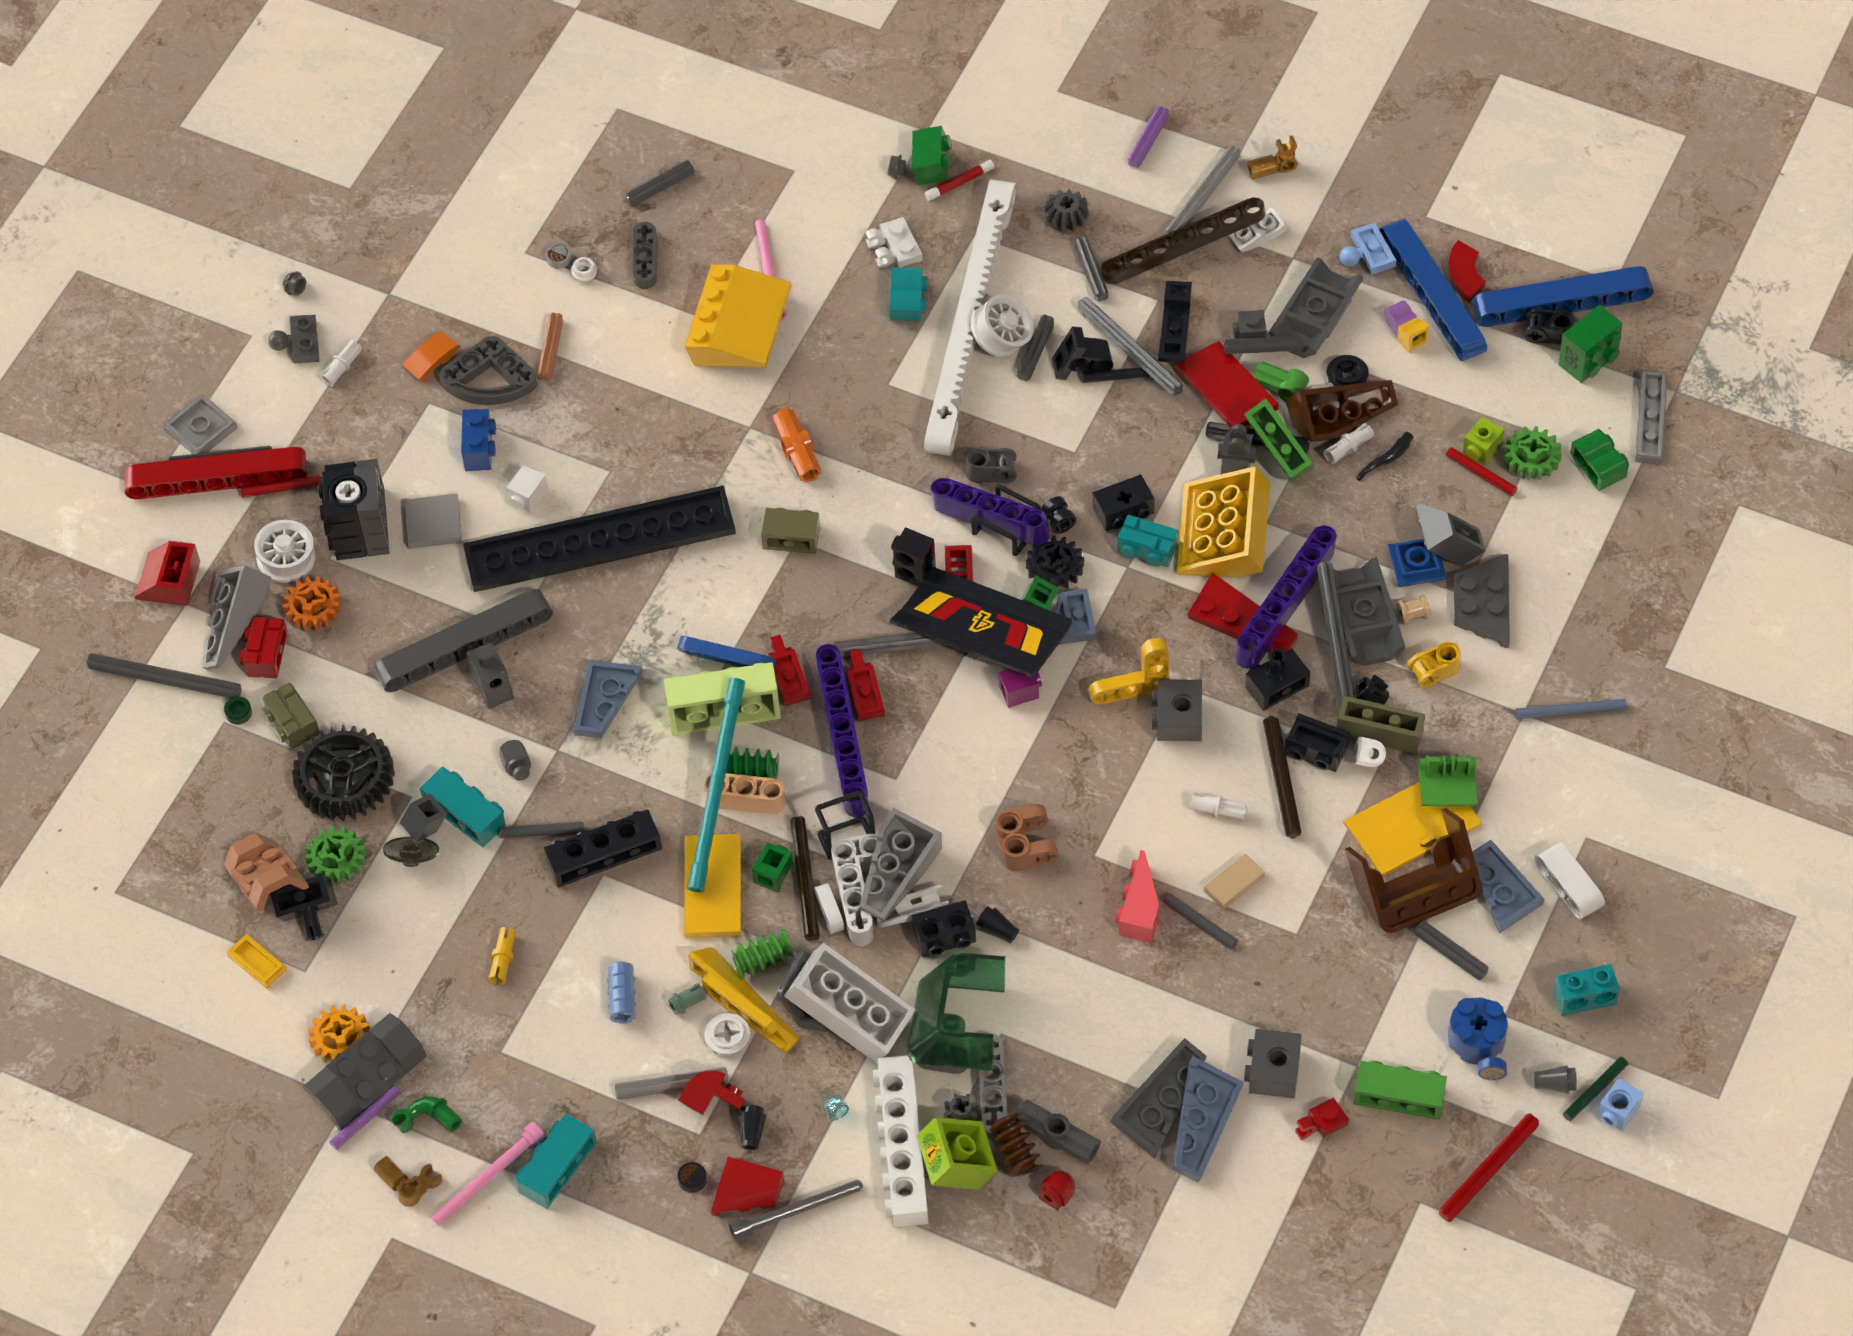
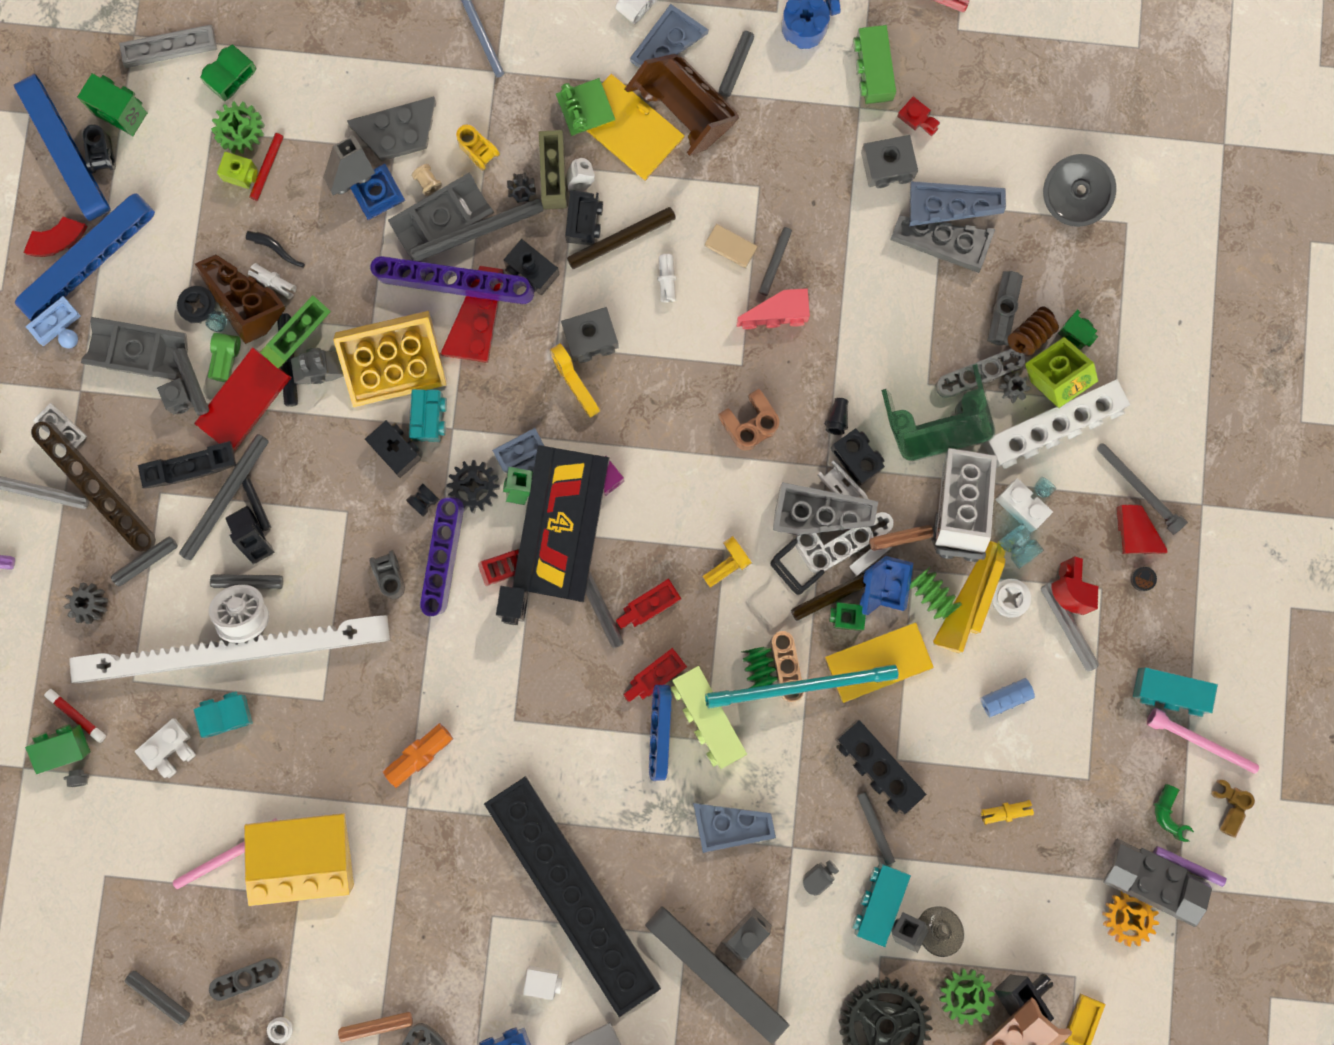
camera: 115 degrees left, 25 degrees up
(686, 999) = (994, 644): sand green pin -> none
(751, 1126) = (1086, 546): black cone -> none
(779, 1056) = (1021, 545): none -> clear light blue wheel
(790, 530) = (510, 726): olive brick -> none
(793, 896) = (887, 585): none -> blue bracket
(810, 1074) = (1022, 507): none -> white piece
(837, 924) = (901, 537): none -> nougat axle
(841, 719) = (706, 598): dark purple beam -> none
(880, 782) = (737, 560): none -> yellow piece
(974, 519) = (466, 526): black piece -> none
(1001, 1199) = (1078, 331): none -> green brick
(1057, 1189) = (1049, 294): red piece -> none
(1167, 1249) = (1062, 194): none -> dark grey dish
(1322, 381) = (219, 323): none -> clear light blue hinge
(1406, 325) = (130, 269): leg -> none

